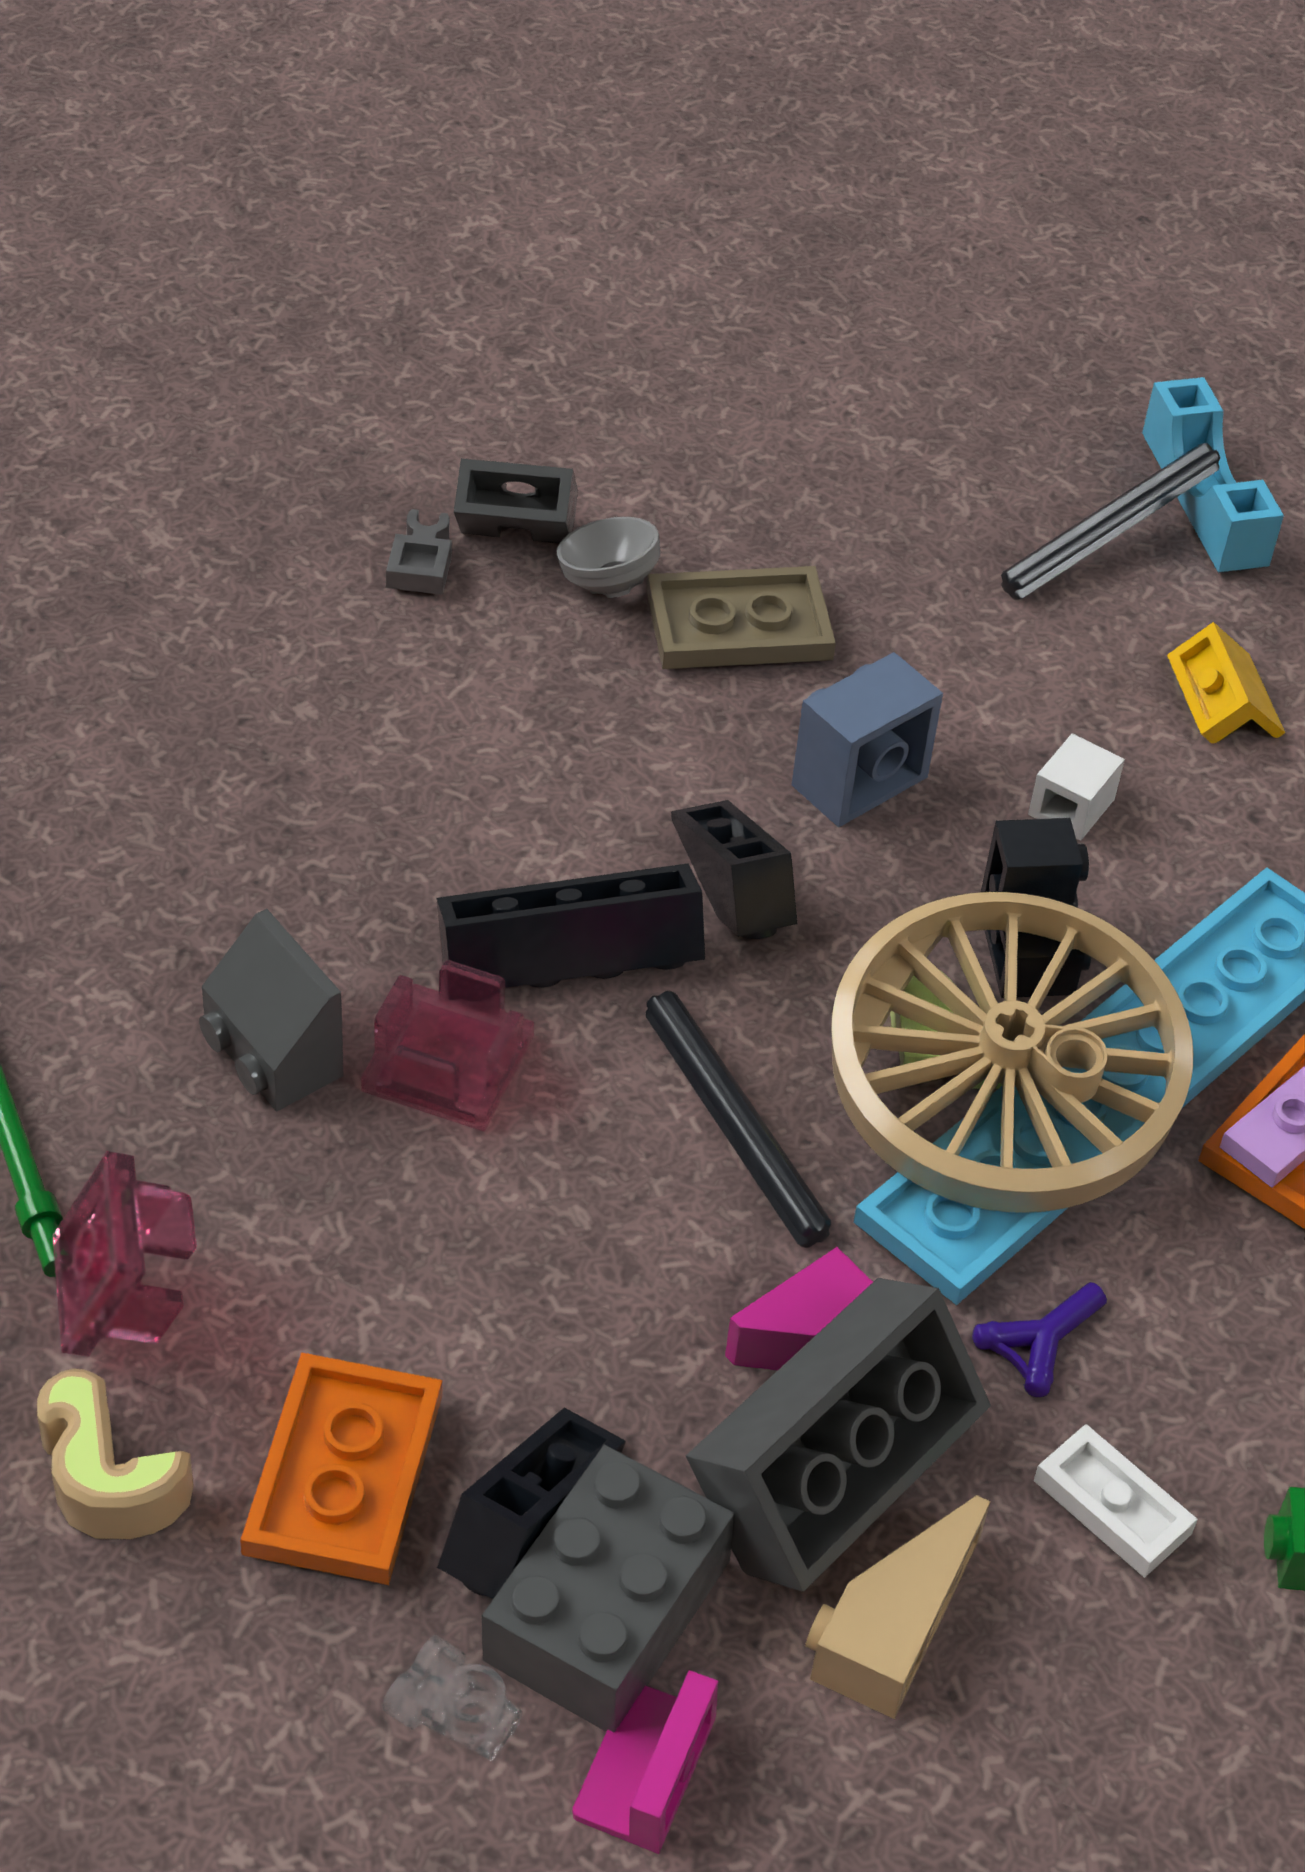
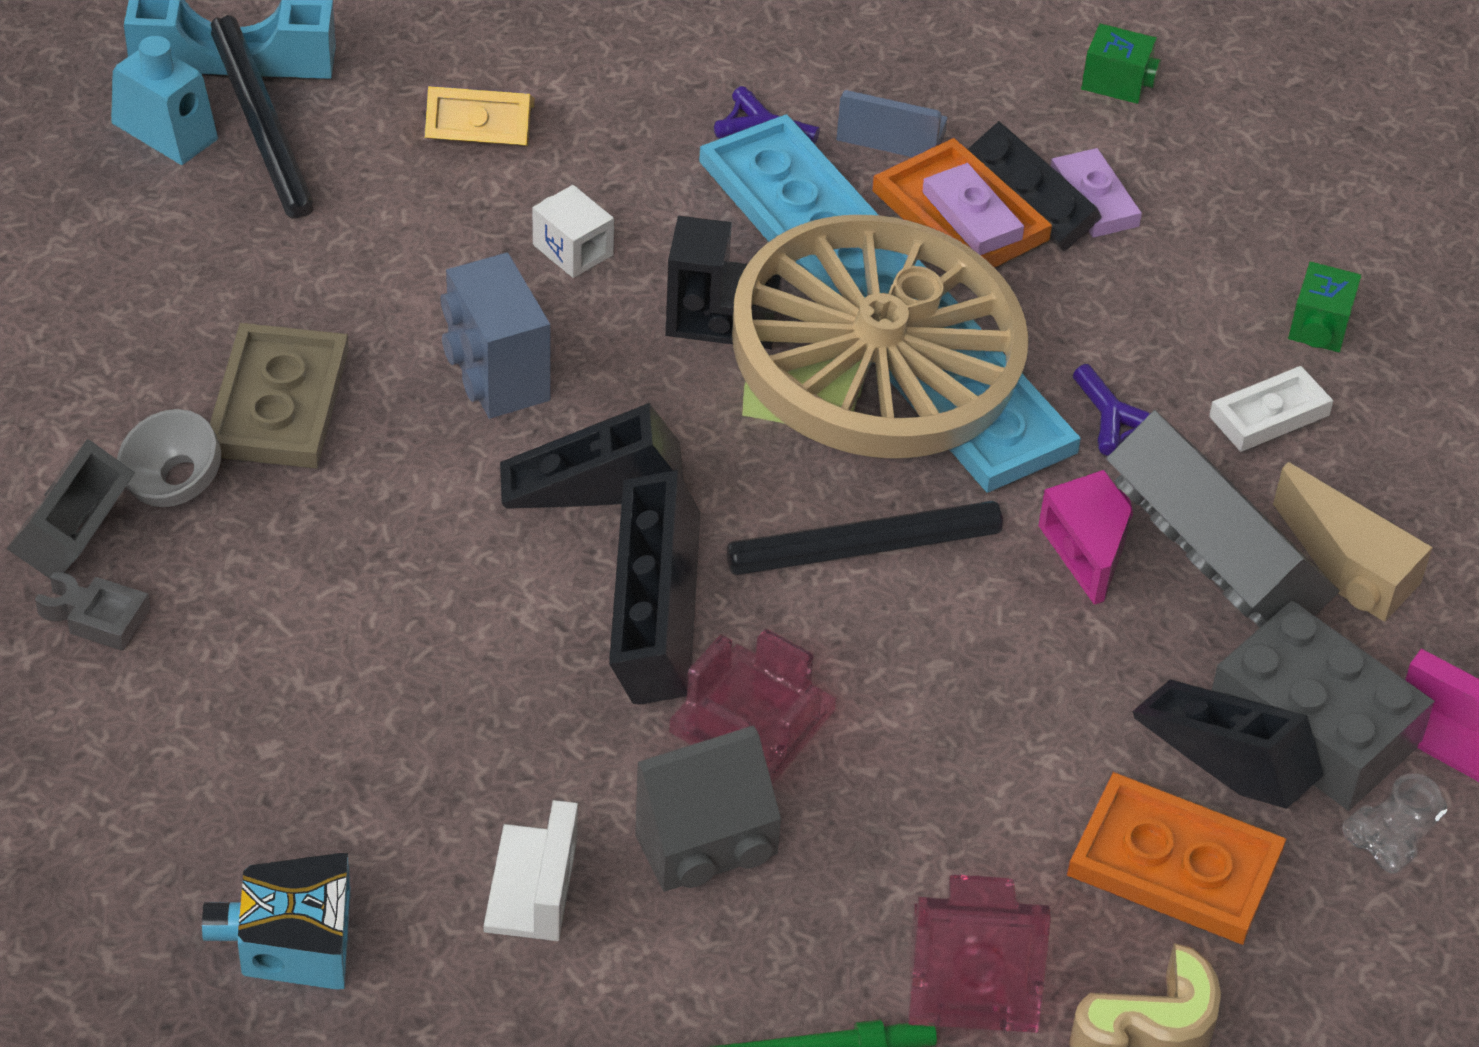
camera: 75 degrees left, 0 degrees up
(88, 752) = (289, 920): none -> torso
(185, 920) = (533, 876): none -> white panel
(1091, 423) = (162, 101): none -> medium azure torso

